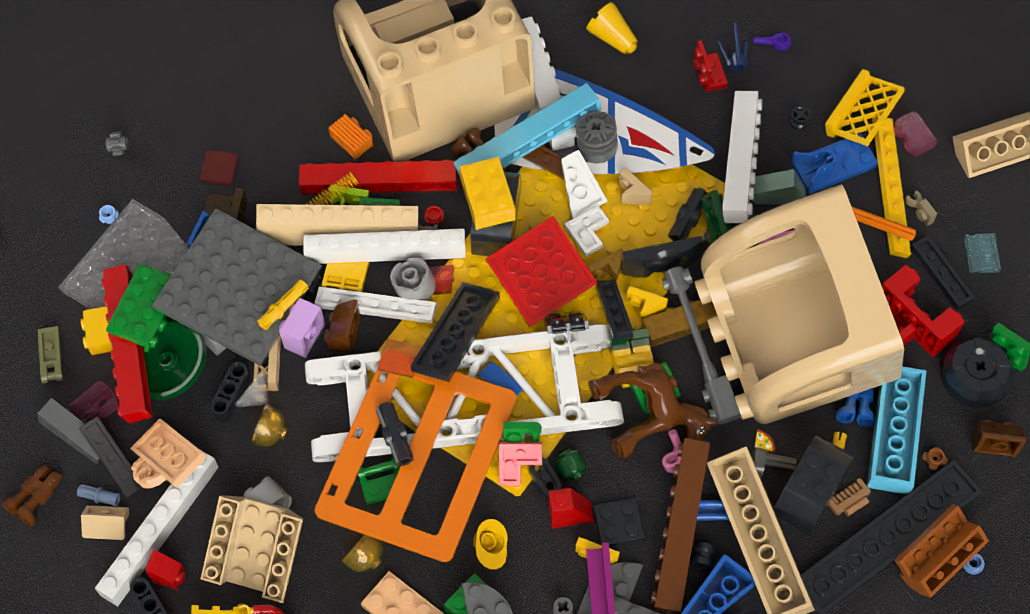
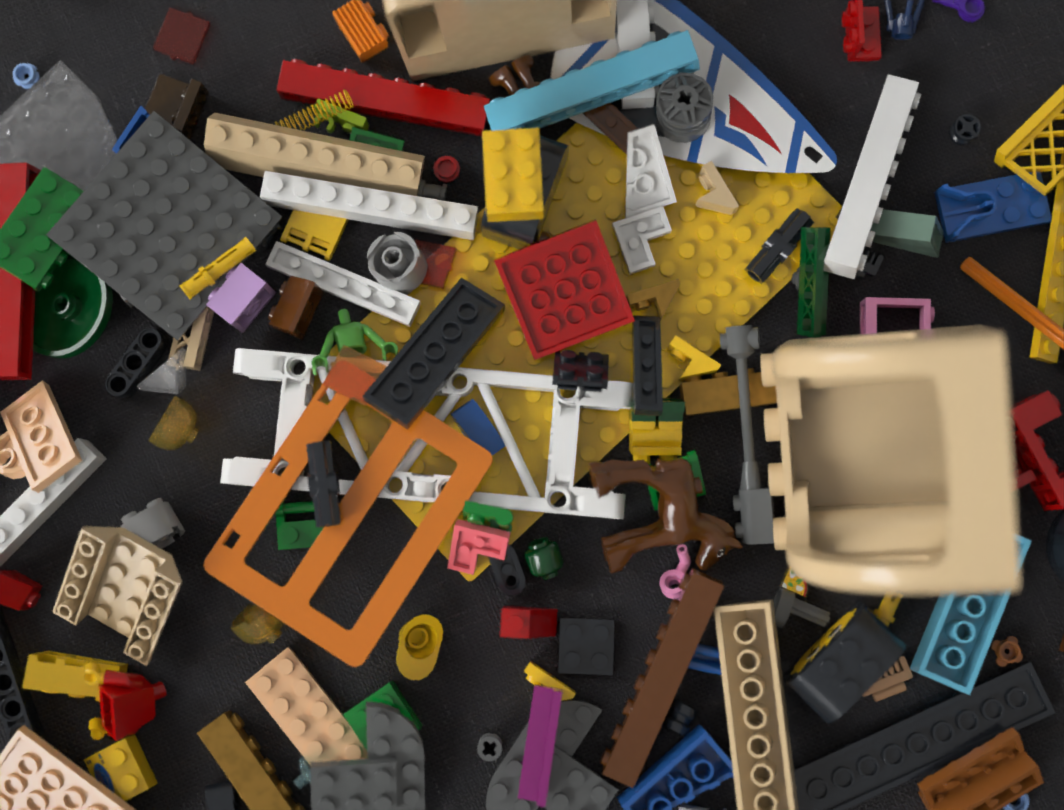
camera: 15 degrees right, 20 degrees up
(393, 334) = (351, 335): none -> bright green piece
(661, 257) = (727, 304): black slope -> none

